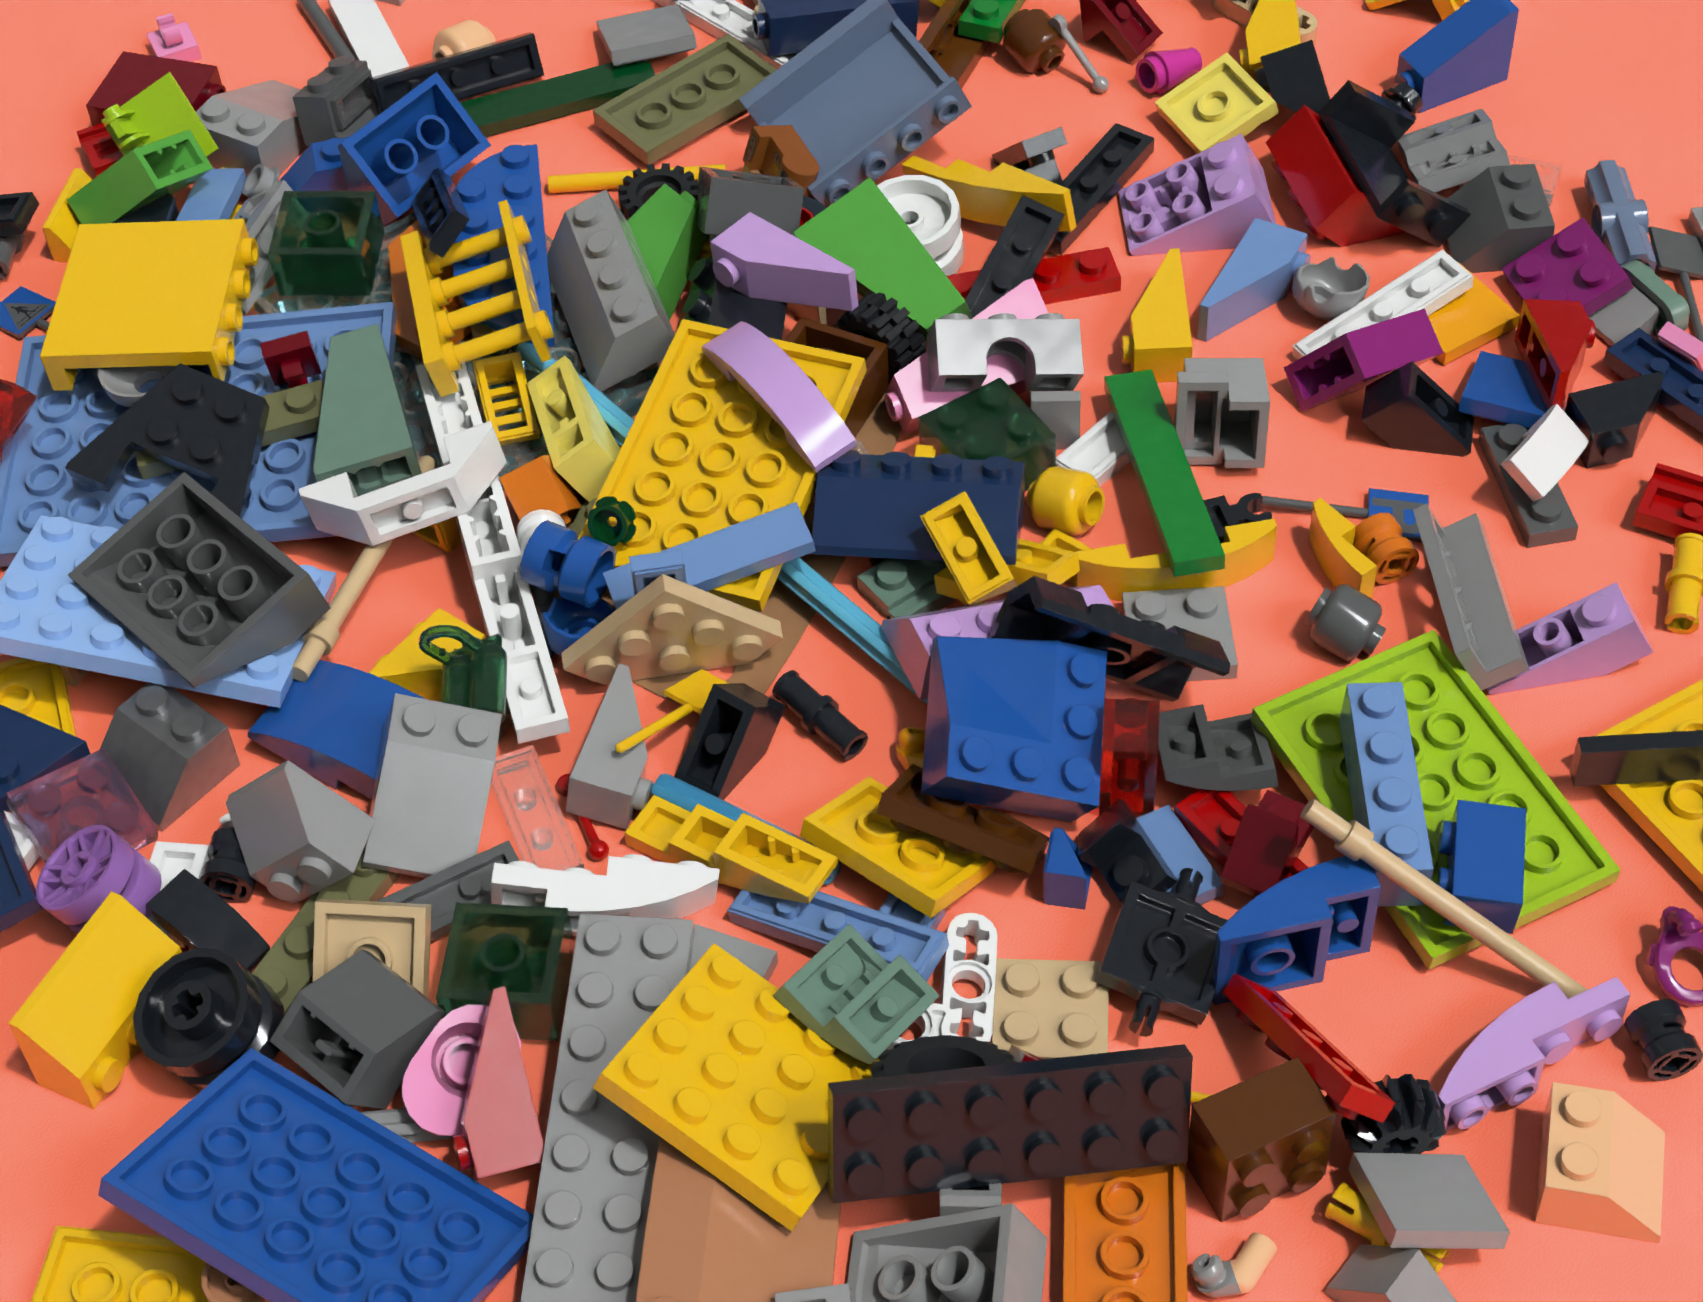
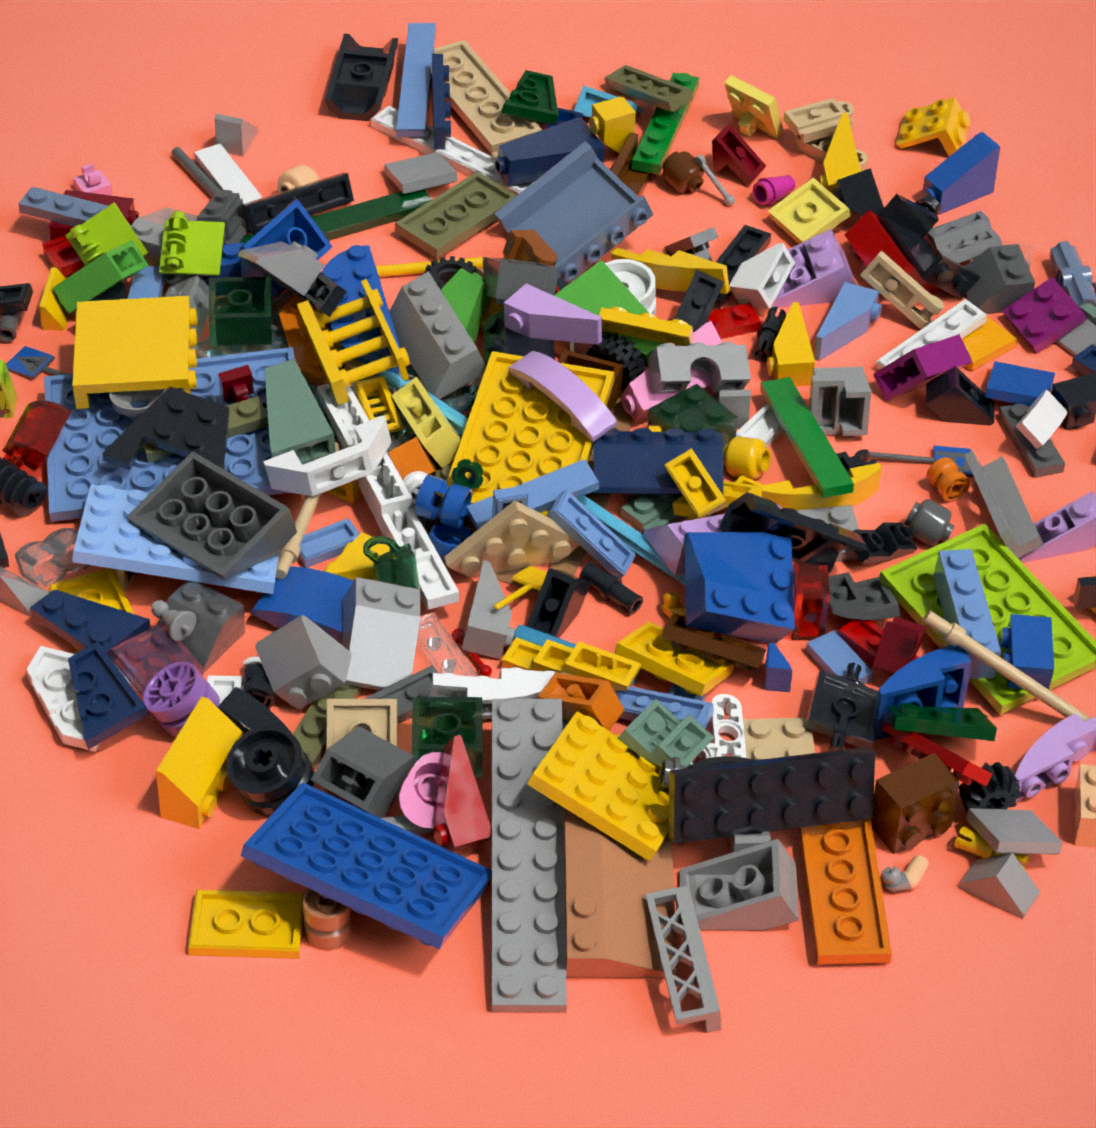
camera: 10 degrees left, 5 degrees down
(99, 76) = (58, 207): none -> sand blue plate
(121, 753) = (177, 622): none -> light grey piece
(276, 141) = (191, 246): none -> lime hinge
(390, 618) = (326, 542): none -> medium blue tile
(397, 172) = (287, 264): none -> light grey slope
(733, 918) = (585, 695): none -> orange slope
(796, 625) = (591, 534): none -> medium blue tile
(852, 1063) = (667, 765): none -> dark grey plate
(926, 286) = (646, 327): none -> yellow plate
(1123, 851) = (810, 656): black slope -> none
(1127, 296) = (767, 334): none -> black pin
(1129, 206) = (762, 277): none -> white slope
(1269, 654) = (885, 543): none -> black slope
(1326, 987) = (944, 721): none -> dark green wing
(1329, 290) = (896, 326): light grey hair -> none
(1333, 546) = (916, 479): yellow slope -> none
(1342, 231) = (901, 290): none -> tan plate
(1554, 345) = (1040, 355): red slope -> none

